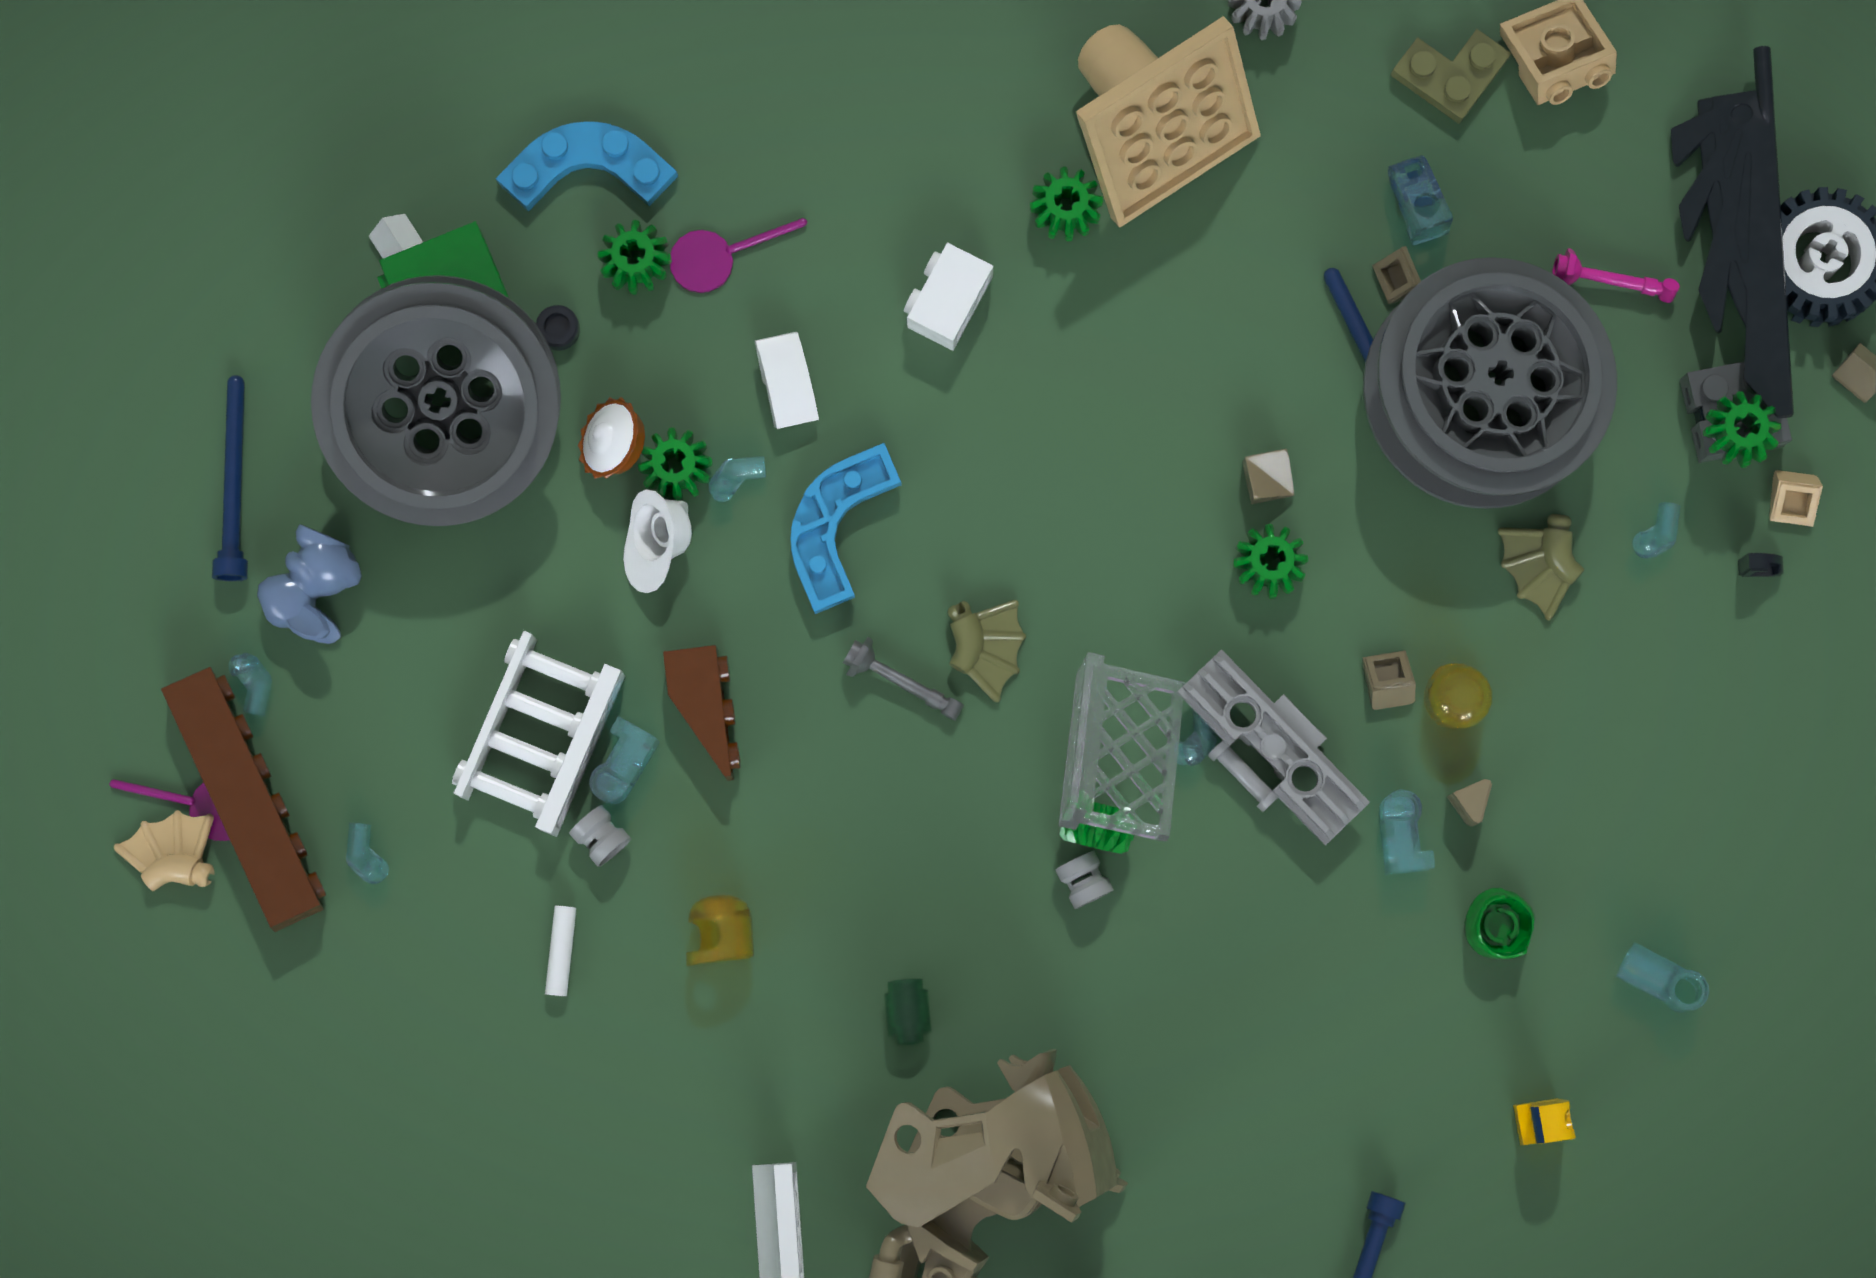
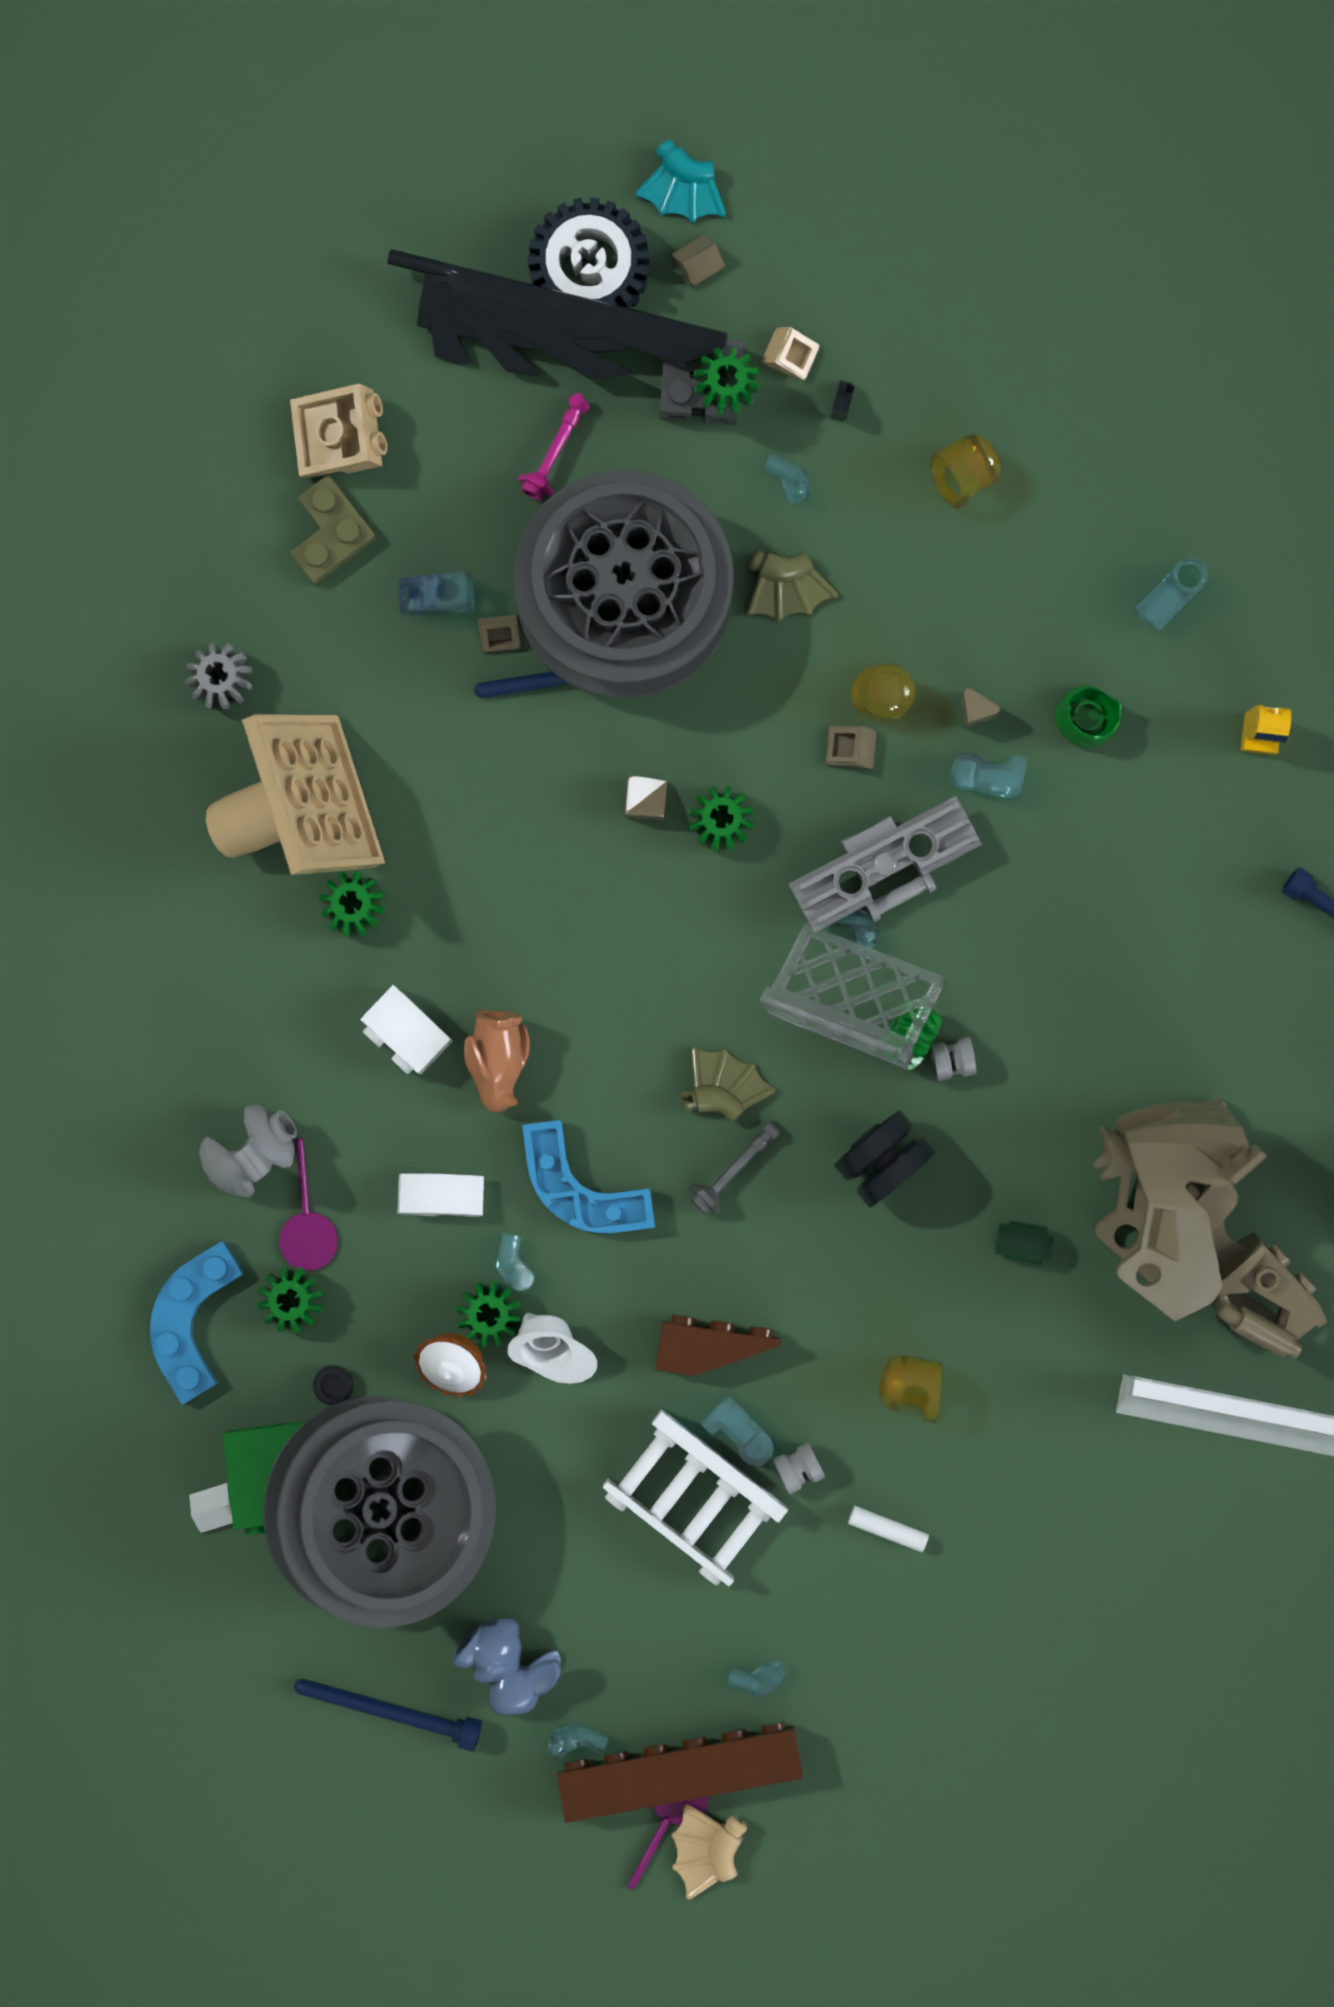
camera: 75 degrees left, 5 degrees up
(794, 184) = (267, 1144): none -> light grey animal
(948, 395) = (496, 1056): none -> nougat animal
(958, 827) = (883, 1157): none -> black wheel
(1733, 720) = (972, 463): none -> clear yellow helmet

